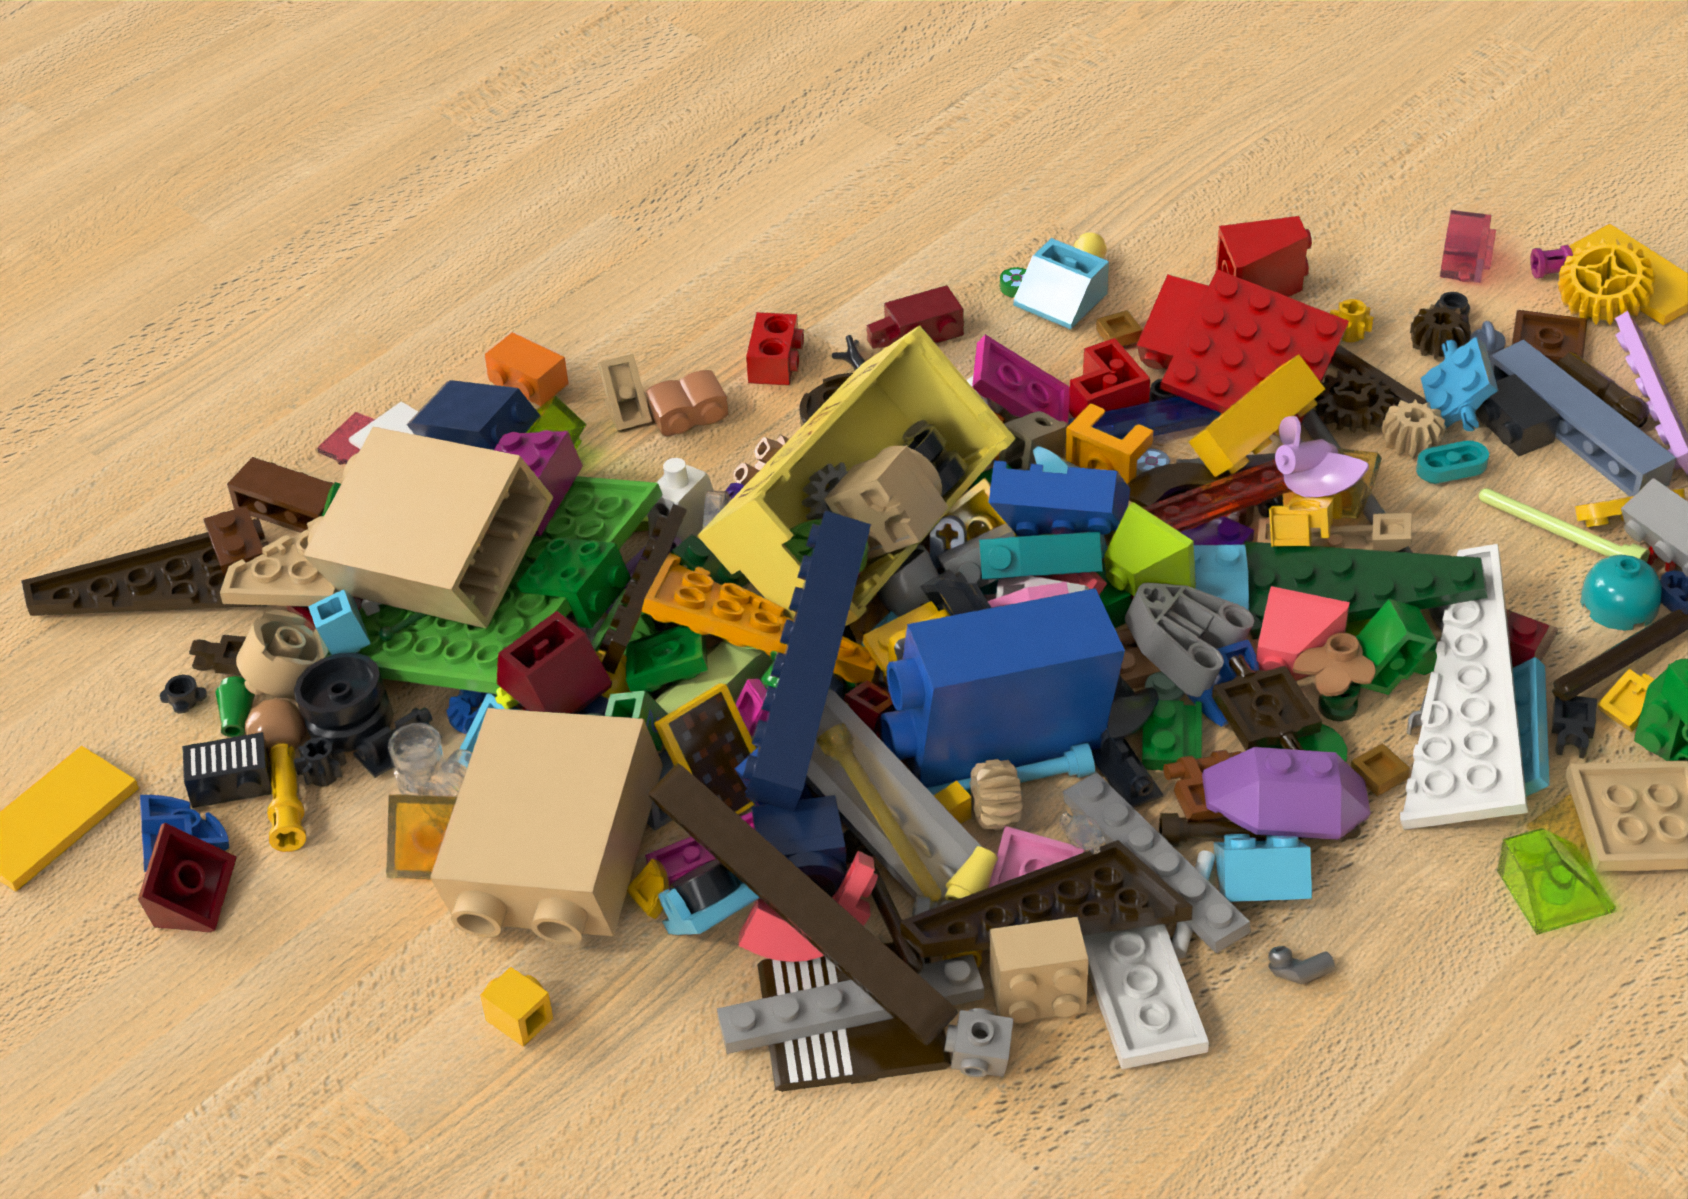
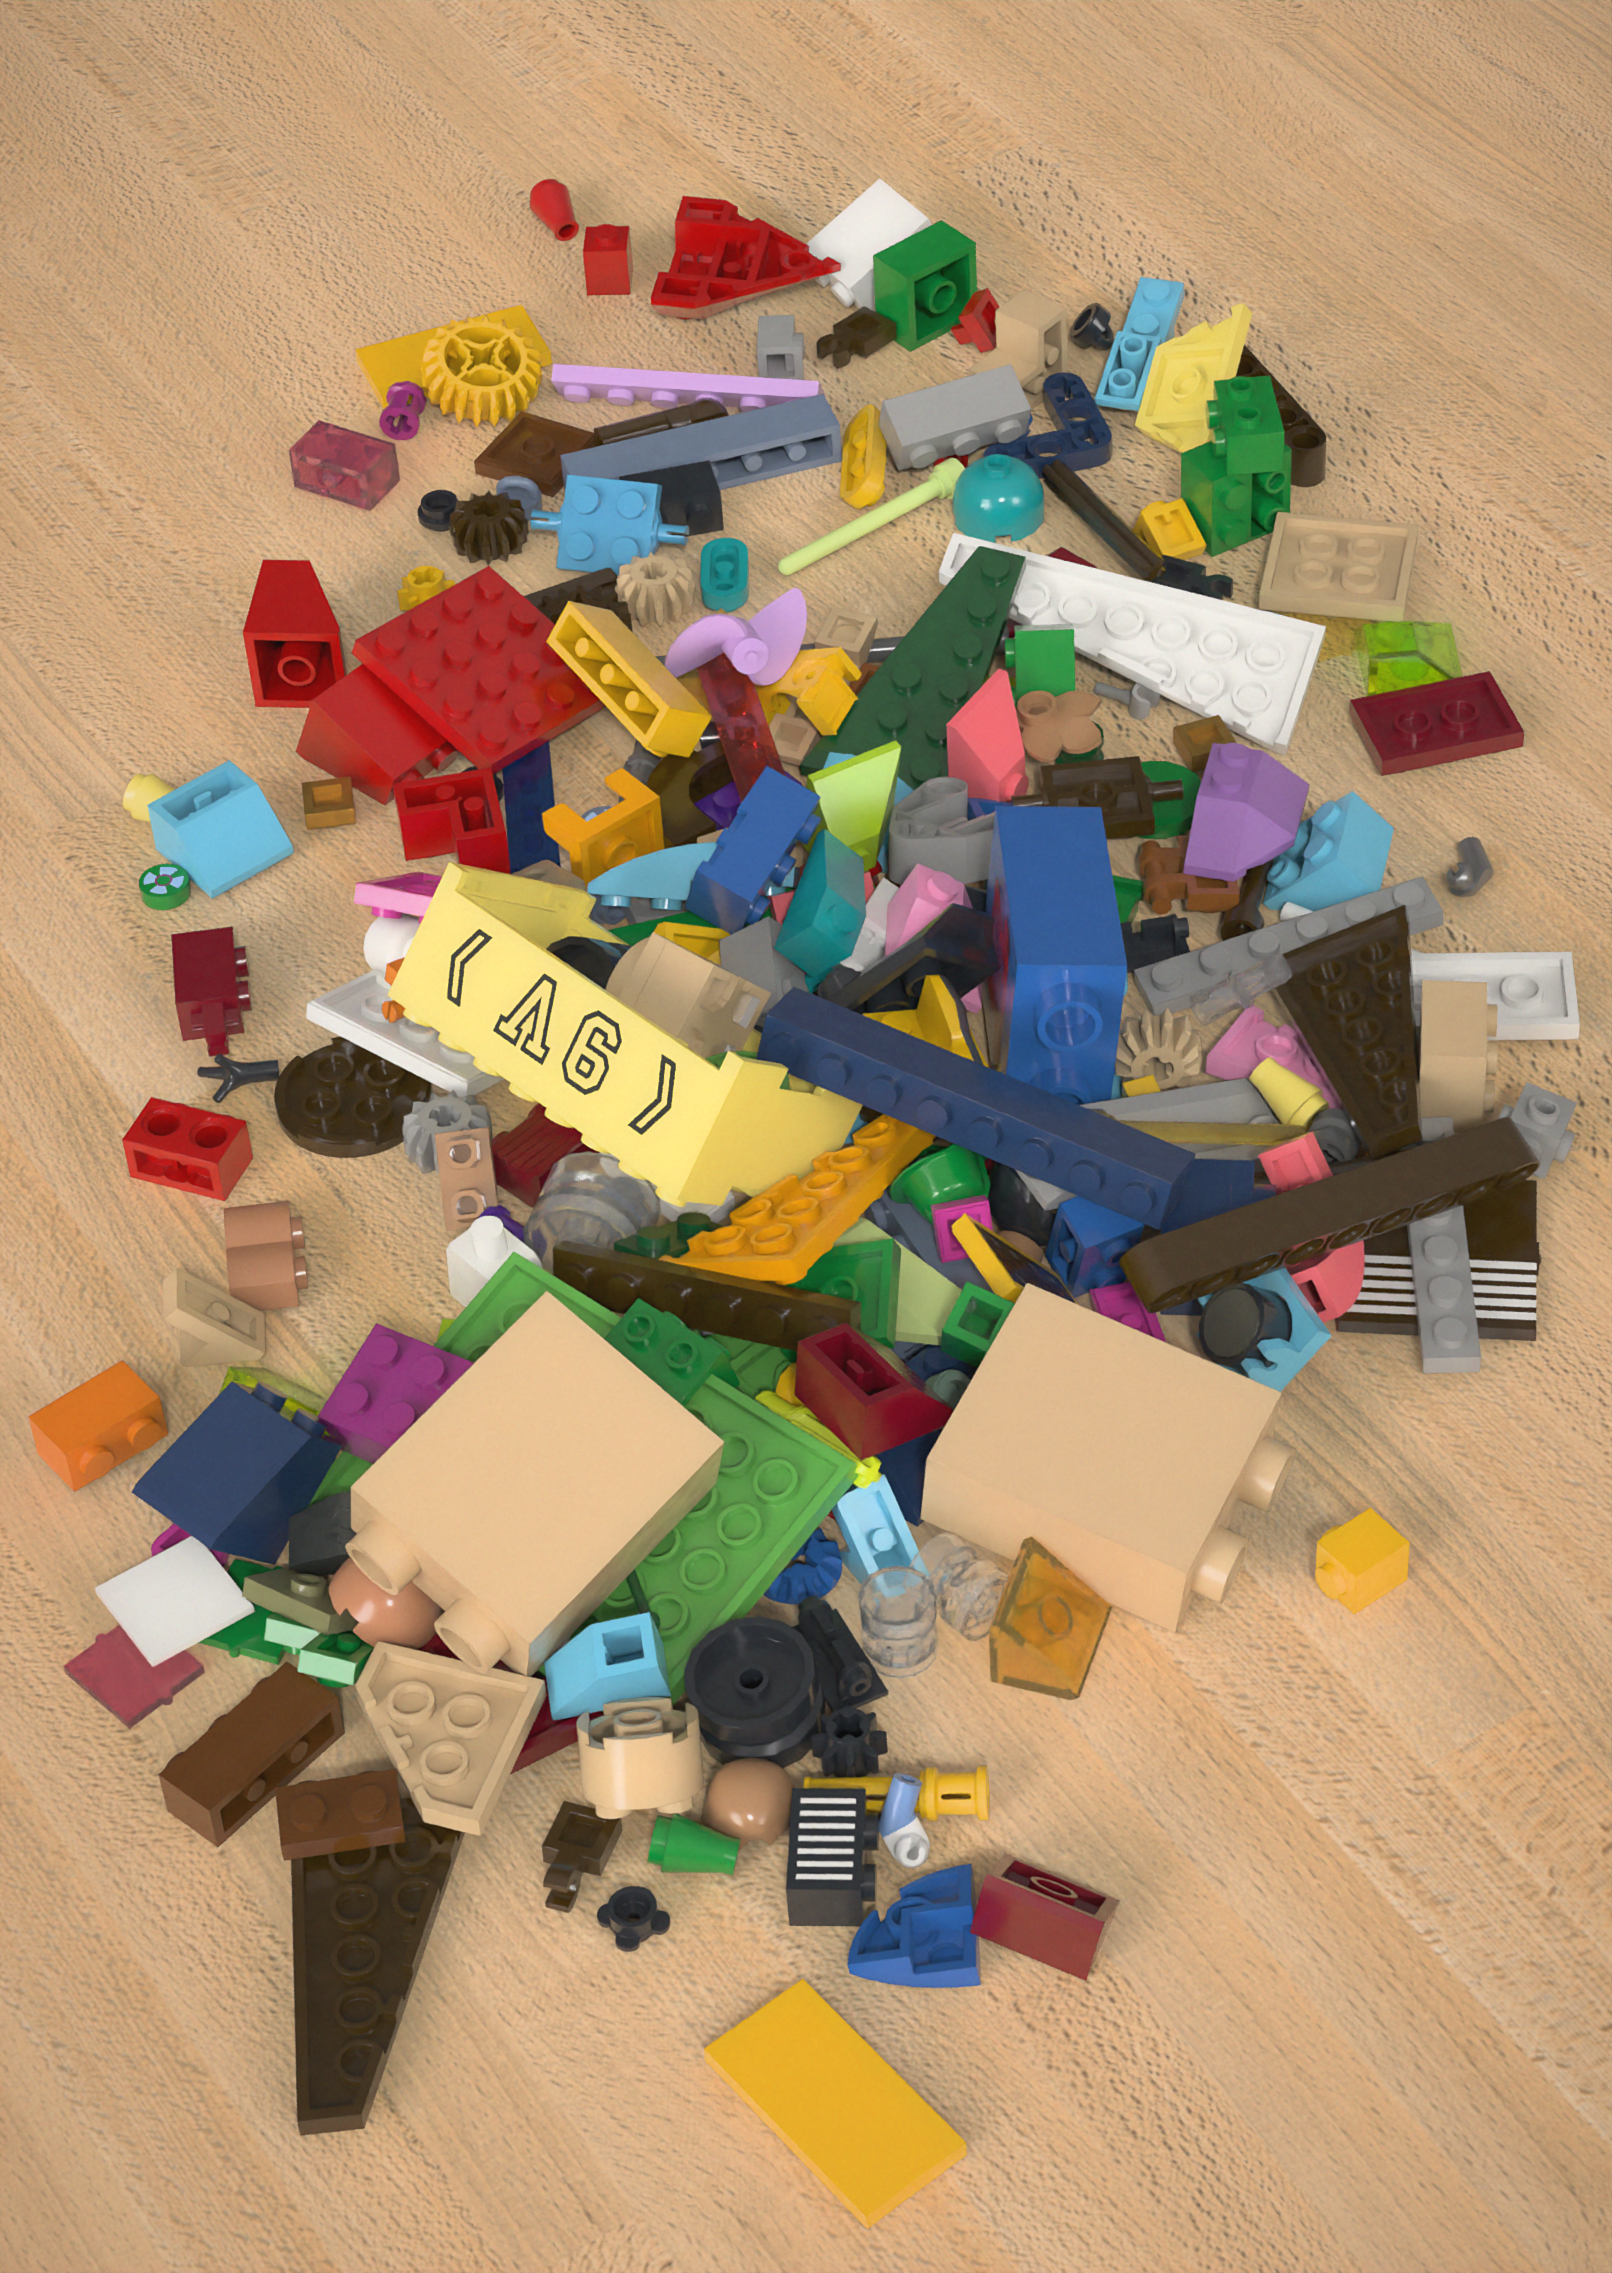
camera: 75 degrees left, 0 degrees up
(256, 801) = (900, 1824): none -> arm
(1471, 914) = (1436, 723): none -> dark red plate

